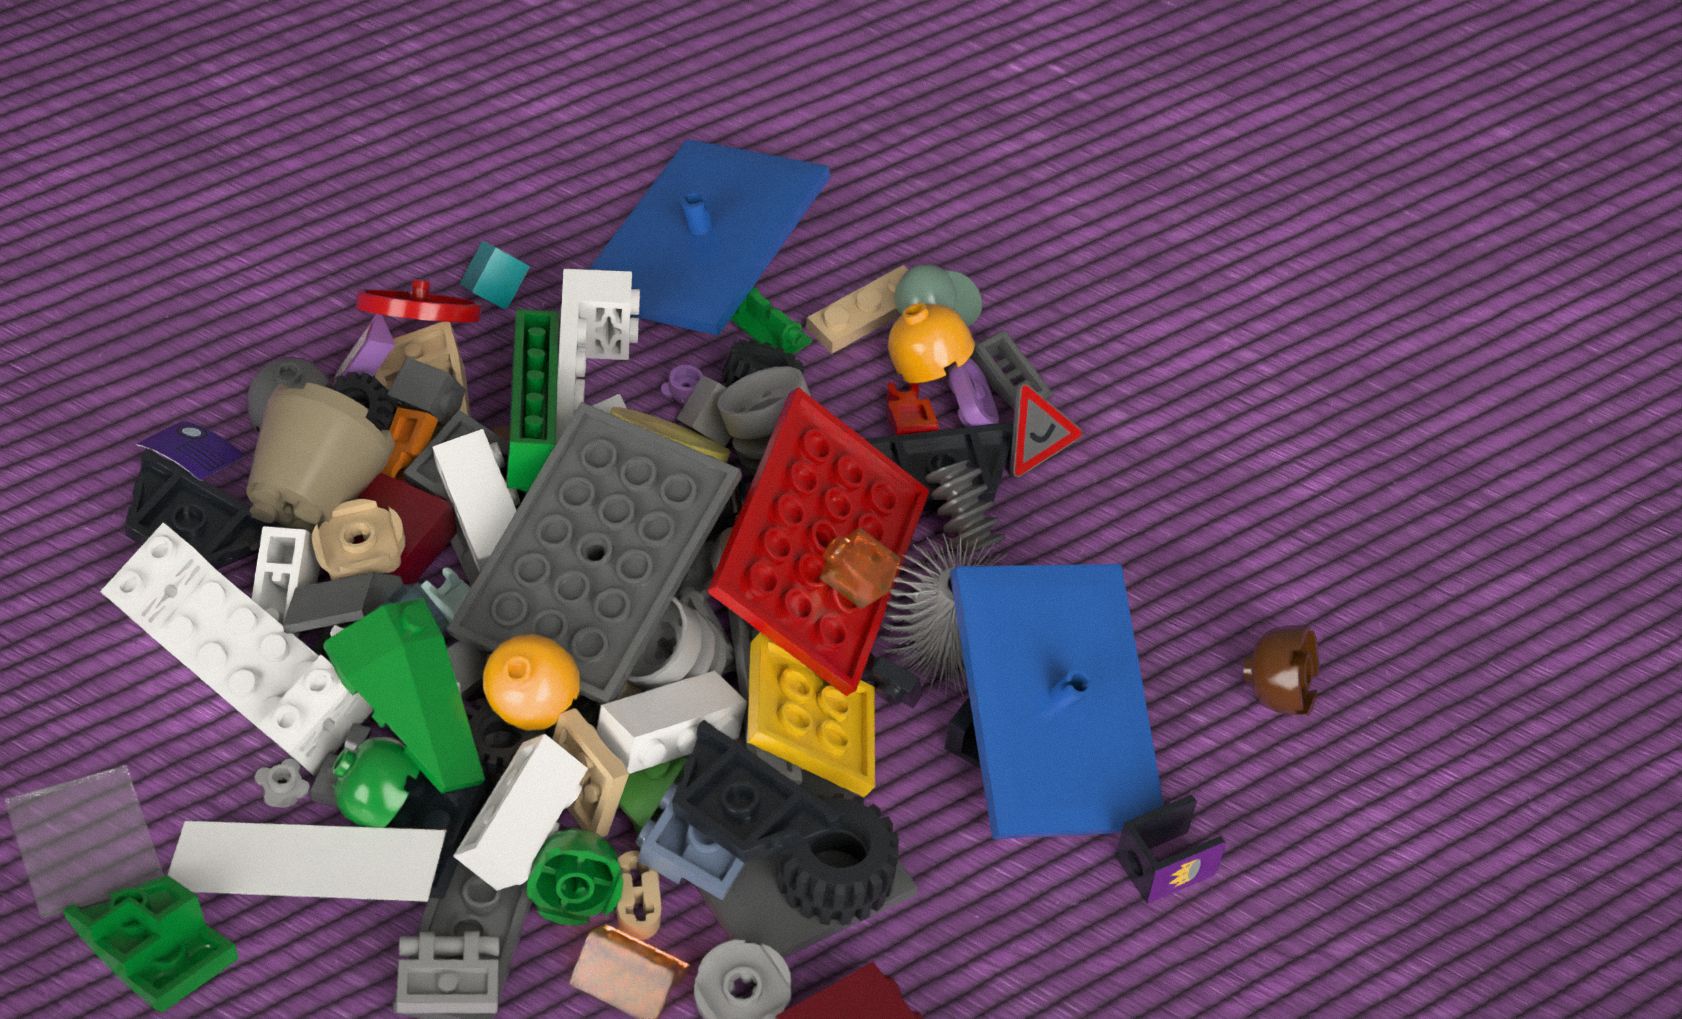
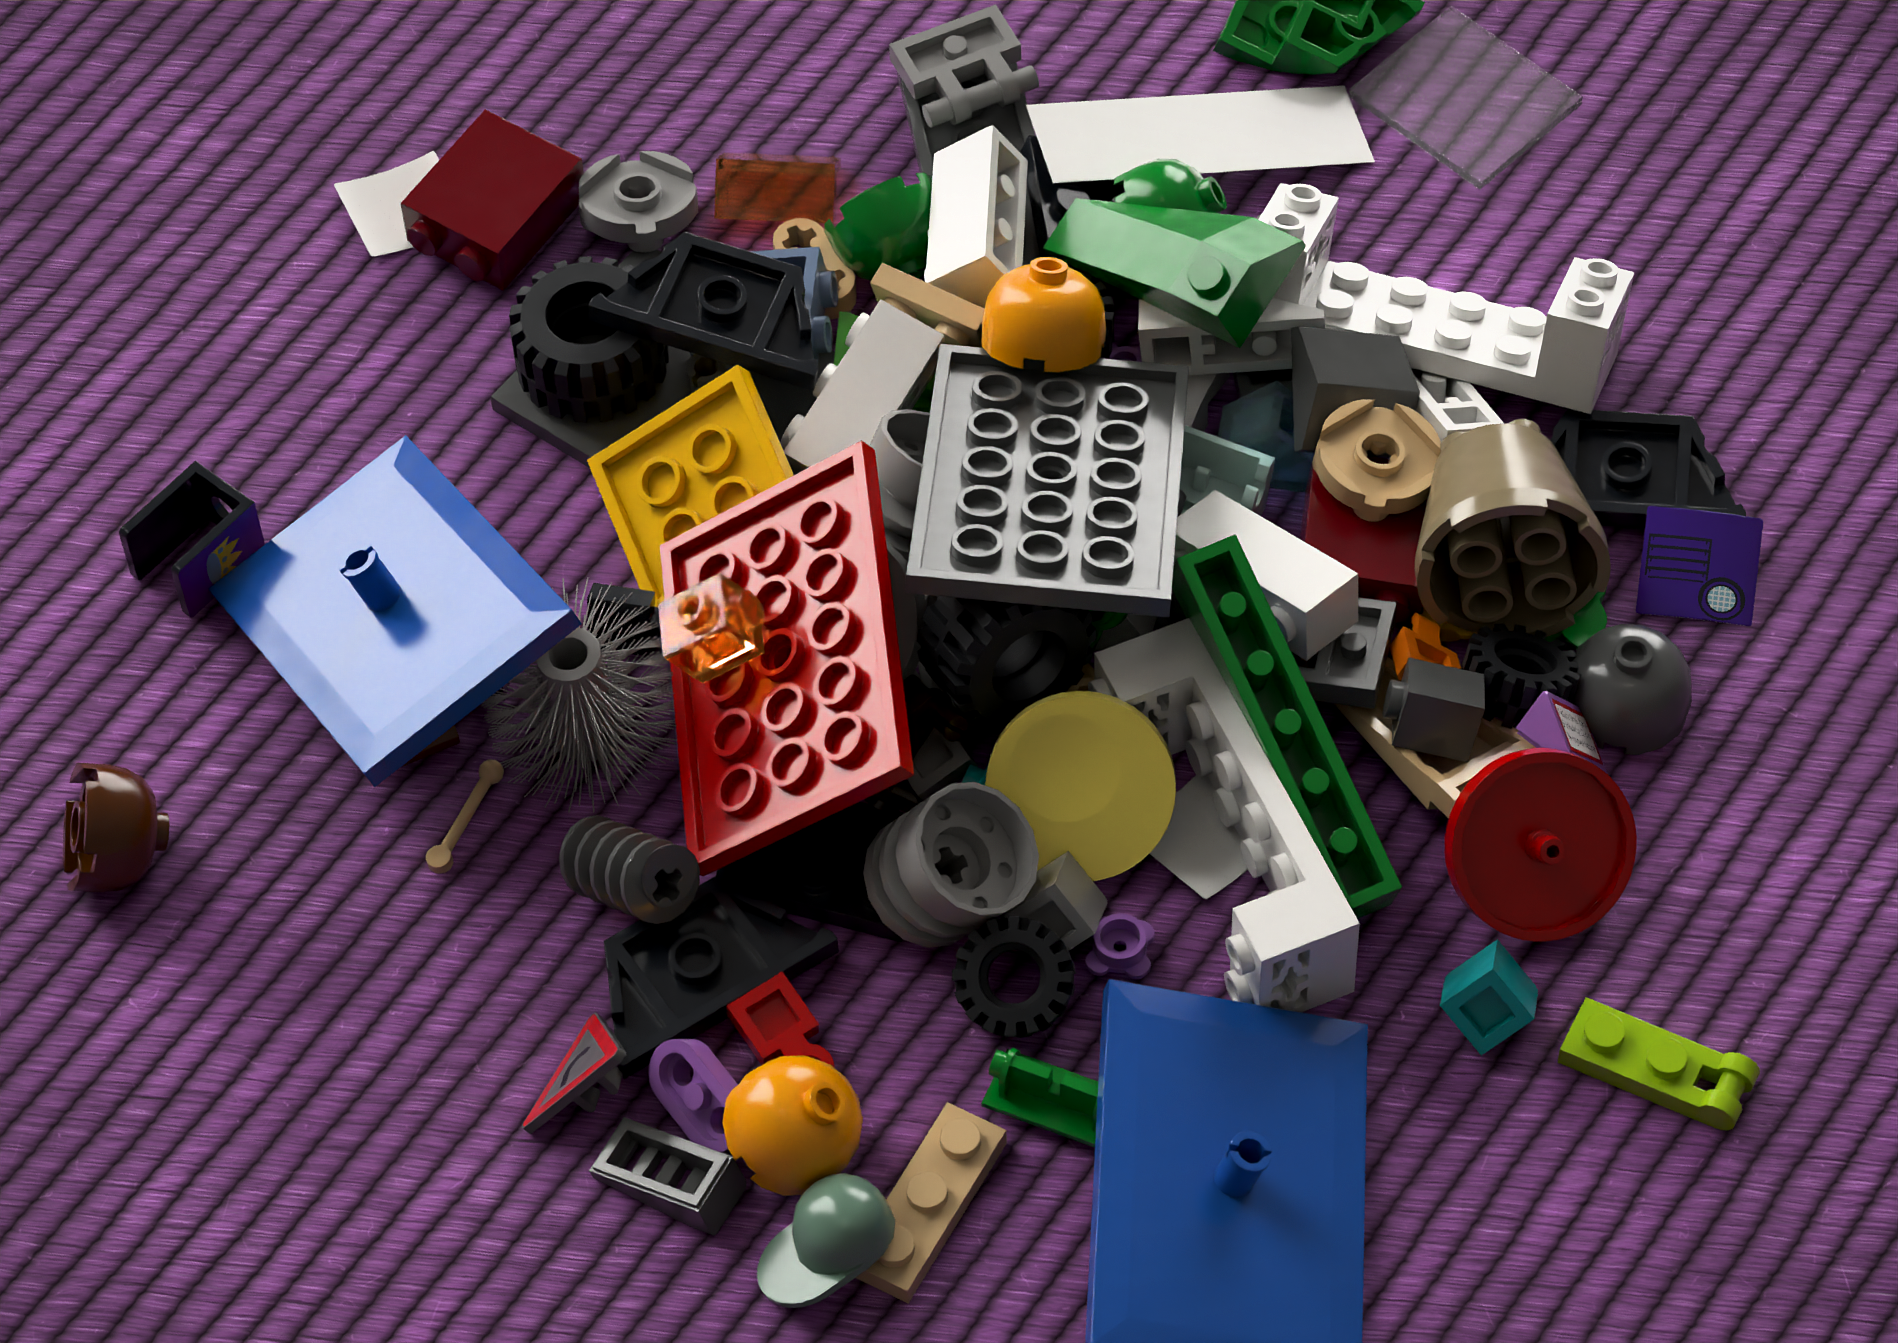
camera: 165 degrees right, 5 degrees up
(423, 219) = (1658, 1064): none -> lime plate

